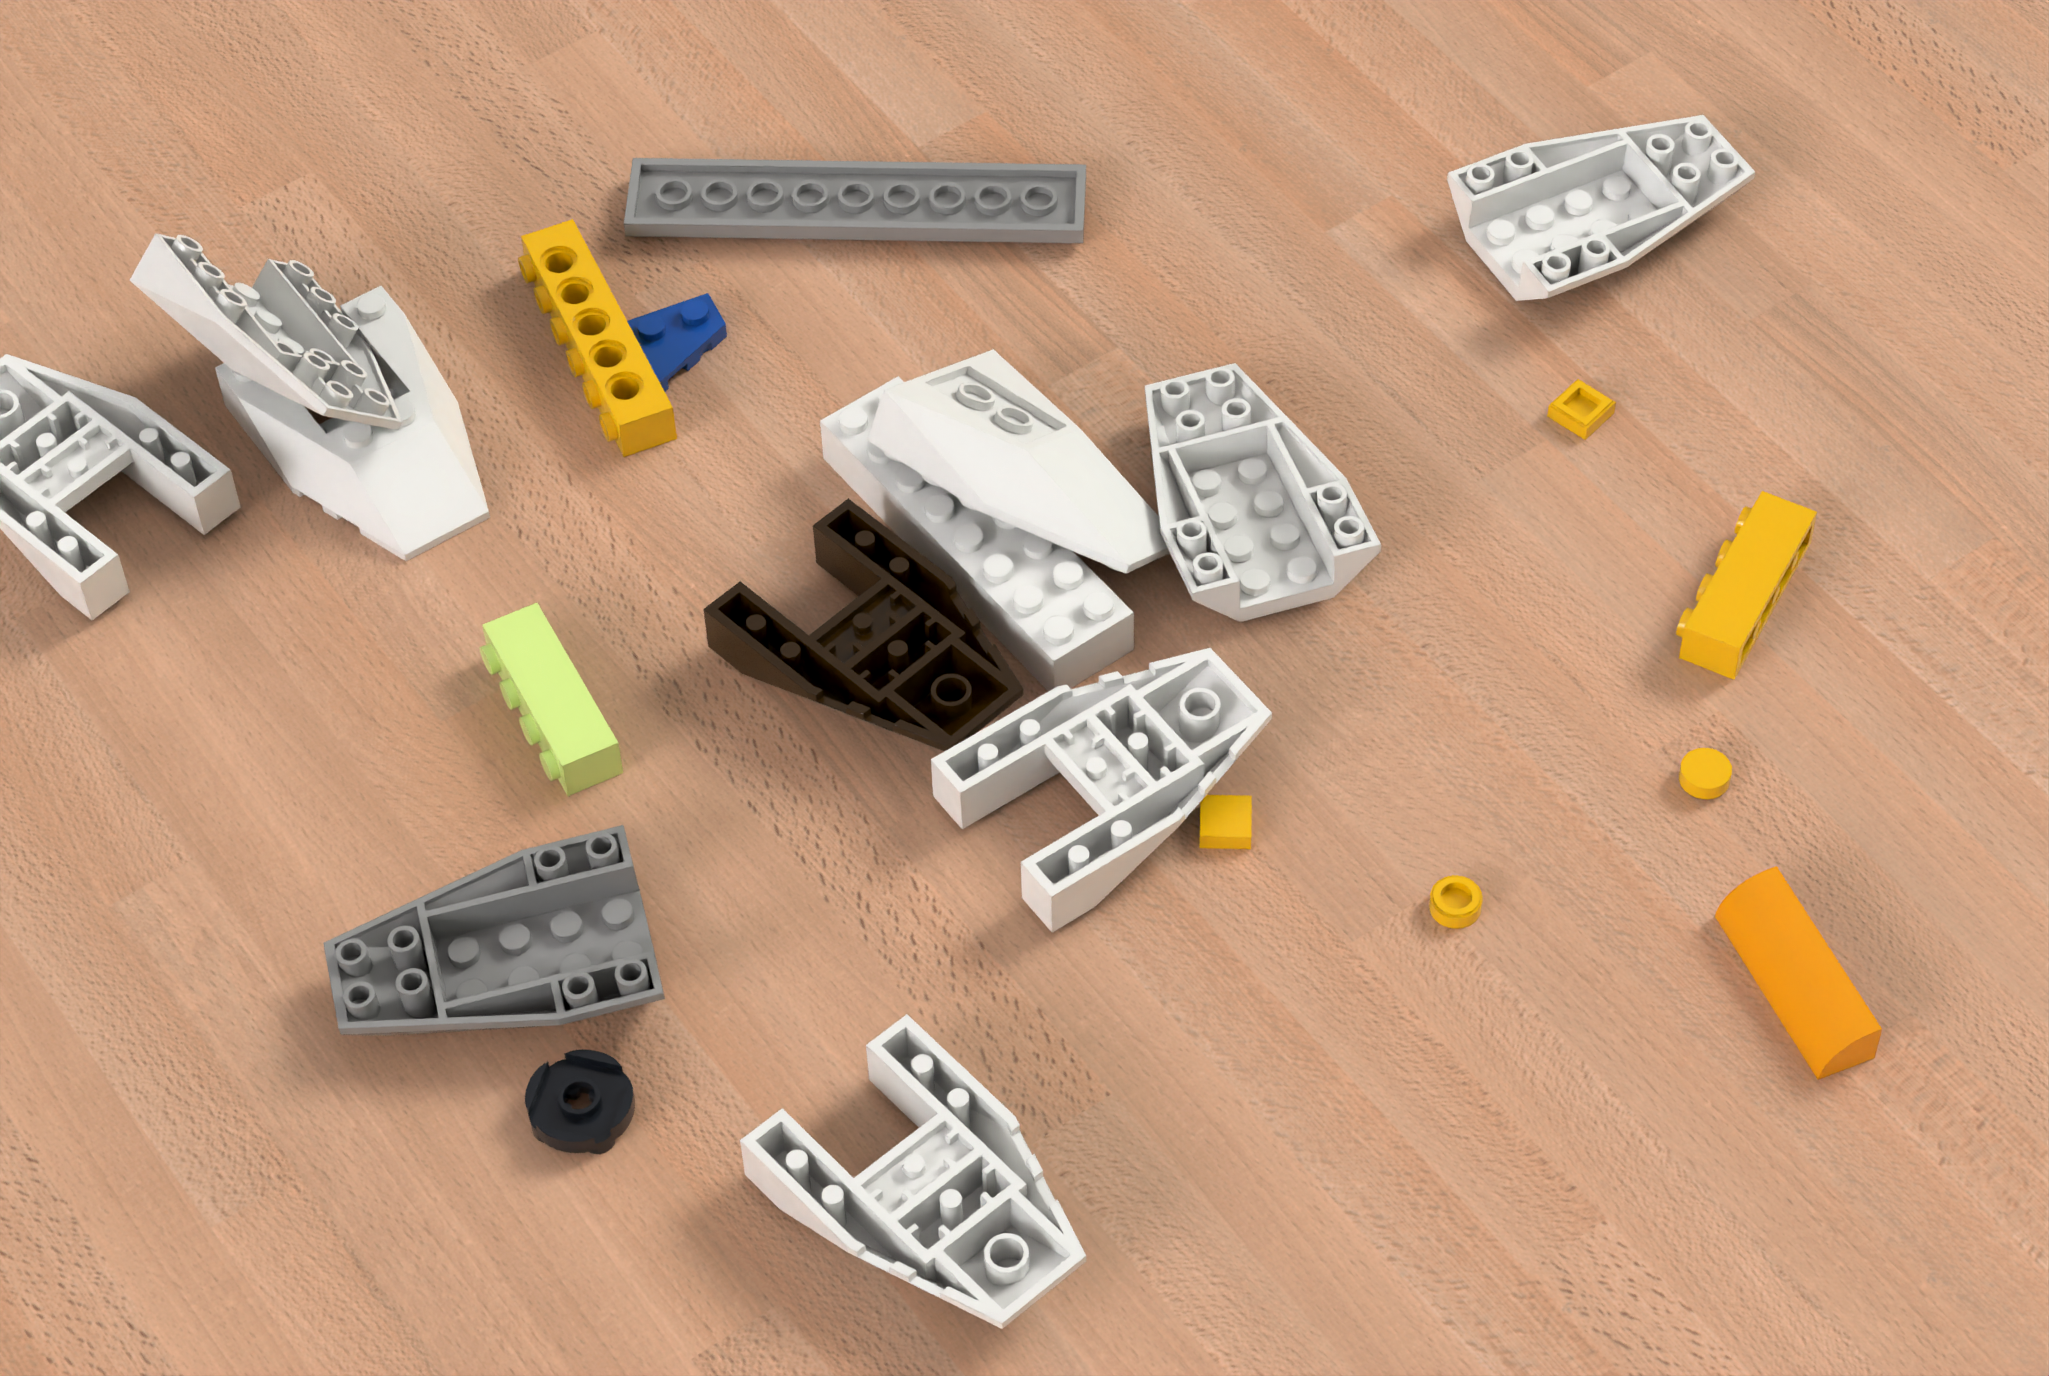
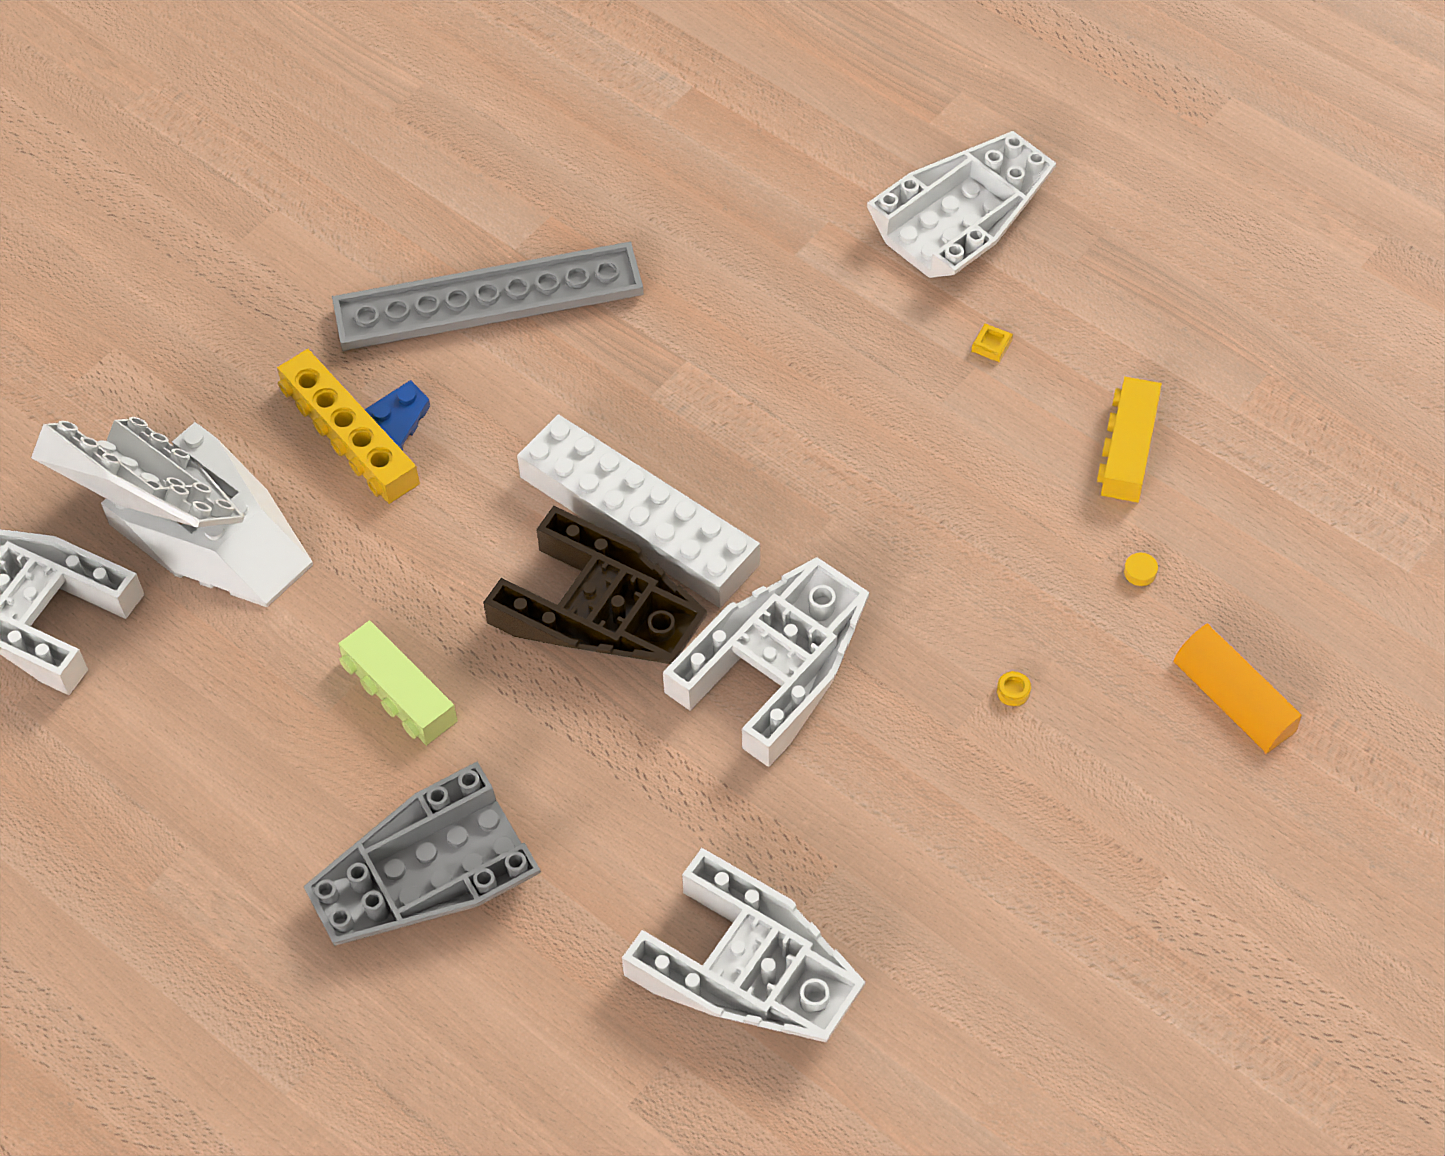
camera: 15 degrees left, 5 degrees up
(583, 1129) = (503, 972): black plate -> none
(1016, 459) = (656, 457): white wedge -> none
(1226, 822) = (856, 668): yellow tile -> none
(1249, 499) = (806, 448): white wedge -> none

